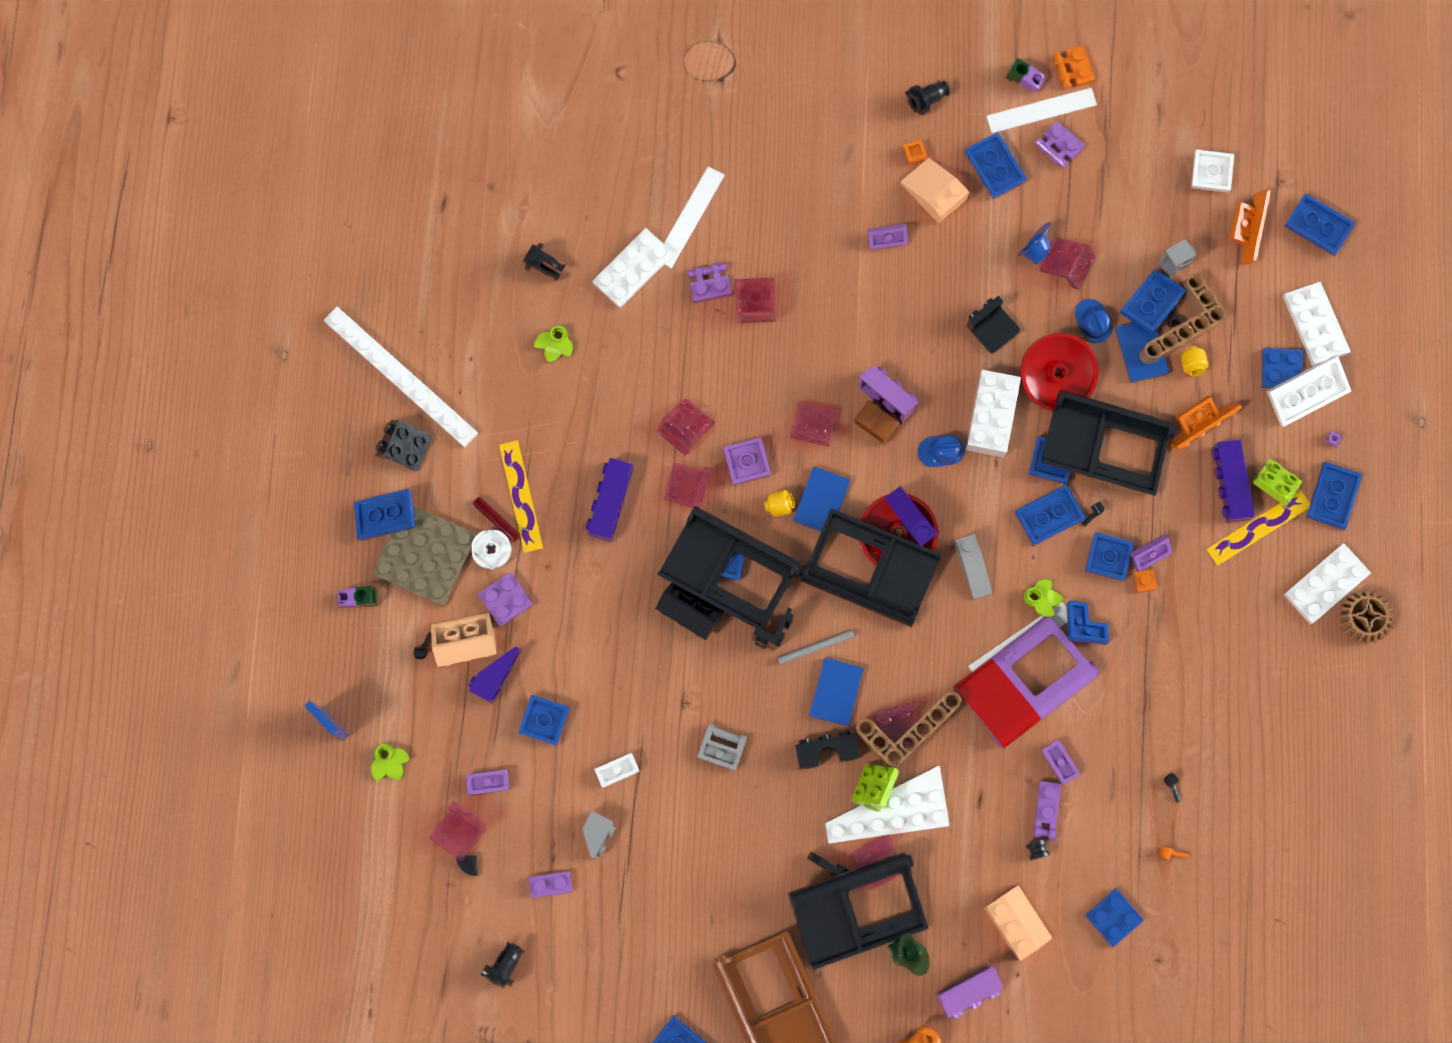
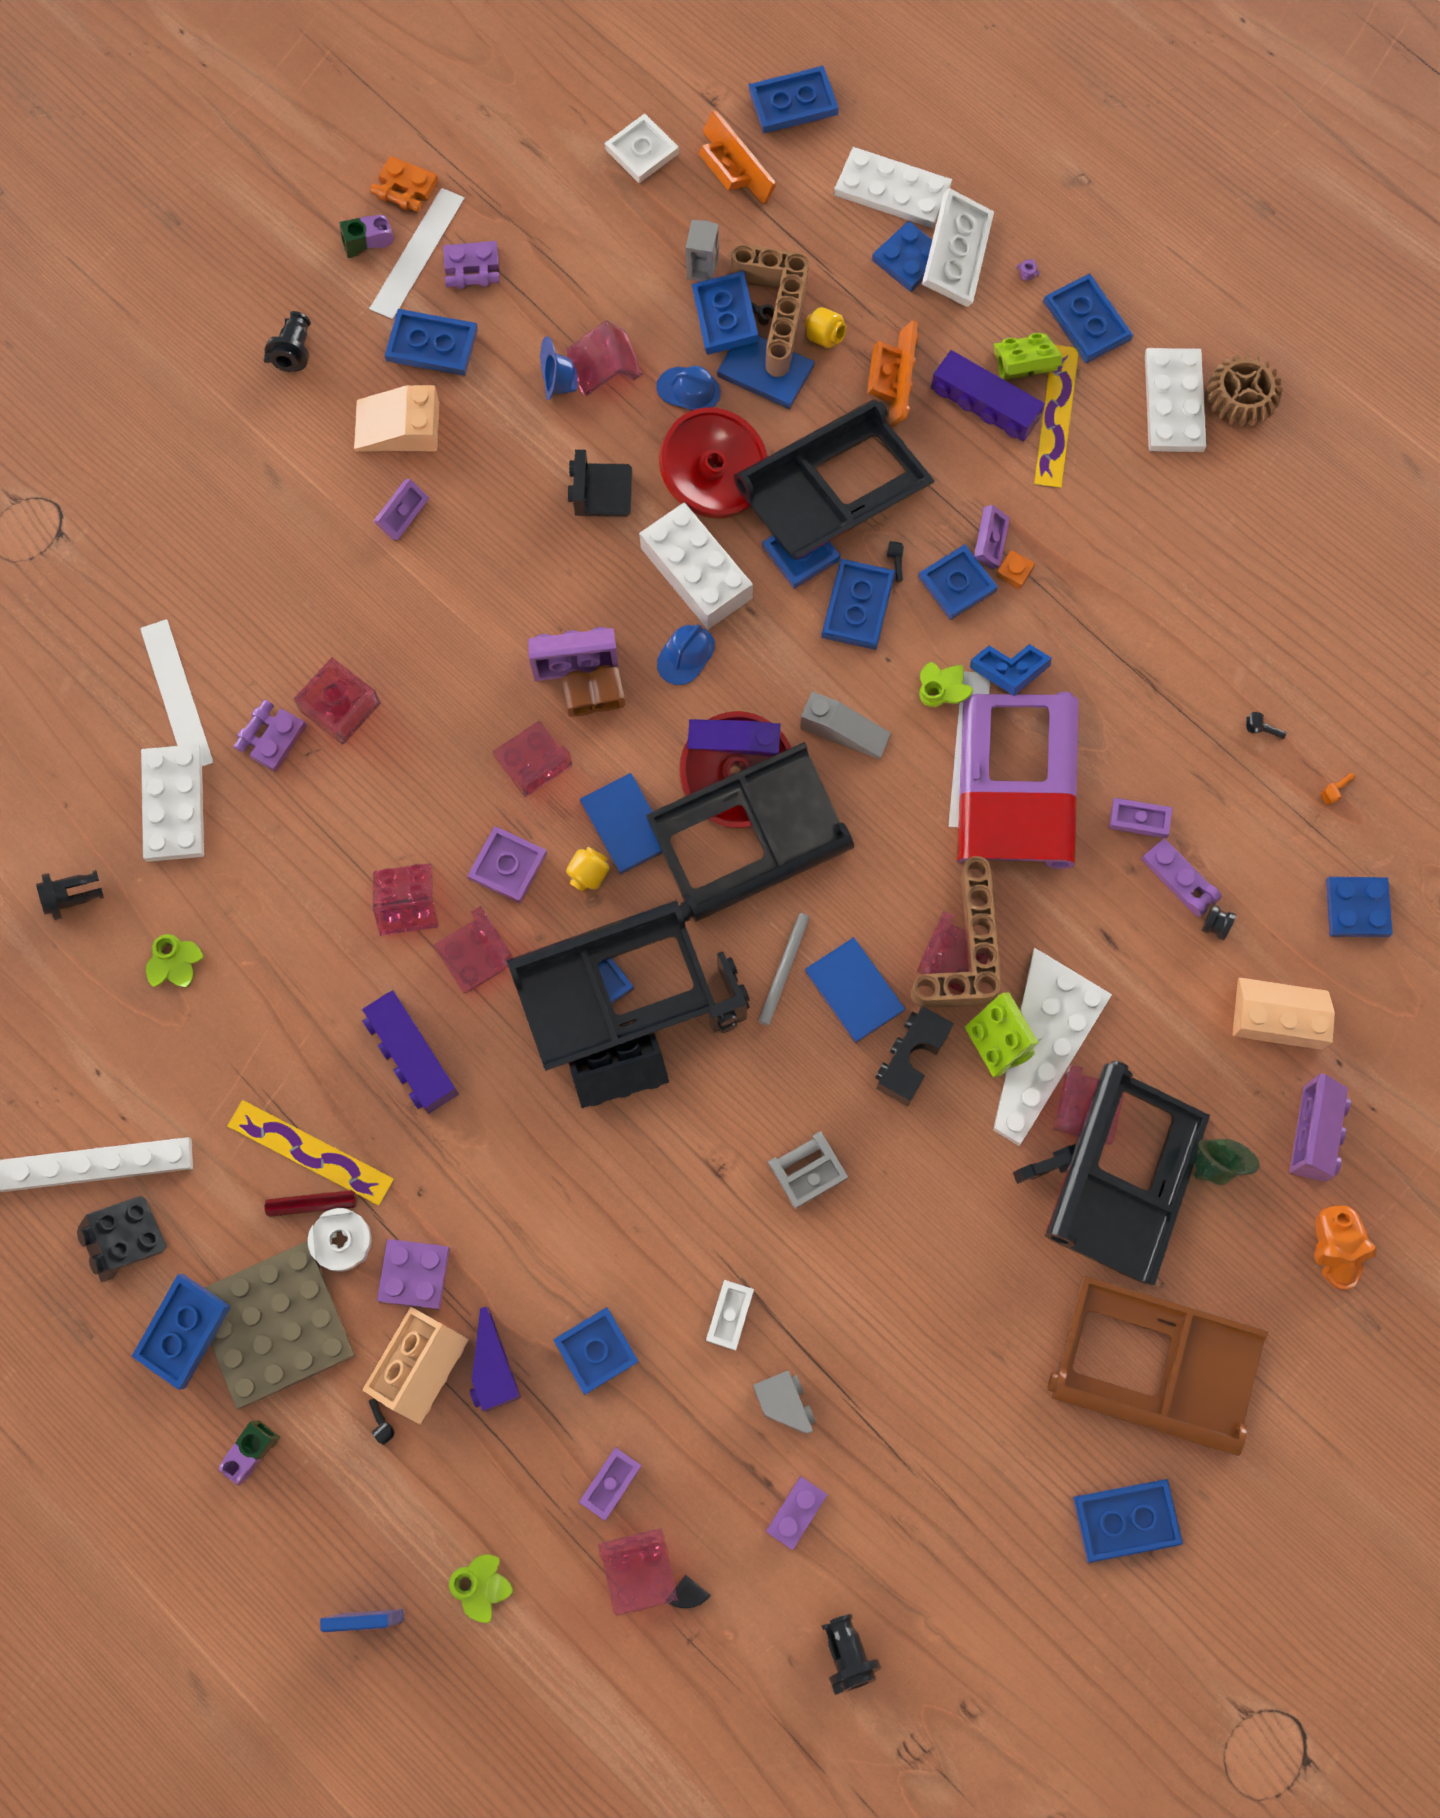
camera: 50 degrees left, 5 degrees down
(915, 152) = (337, 406): orange plate -> none

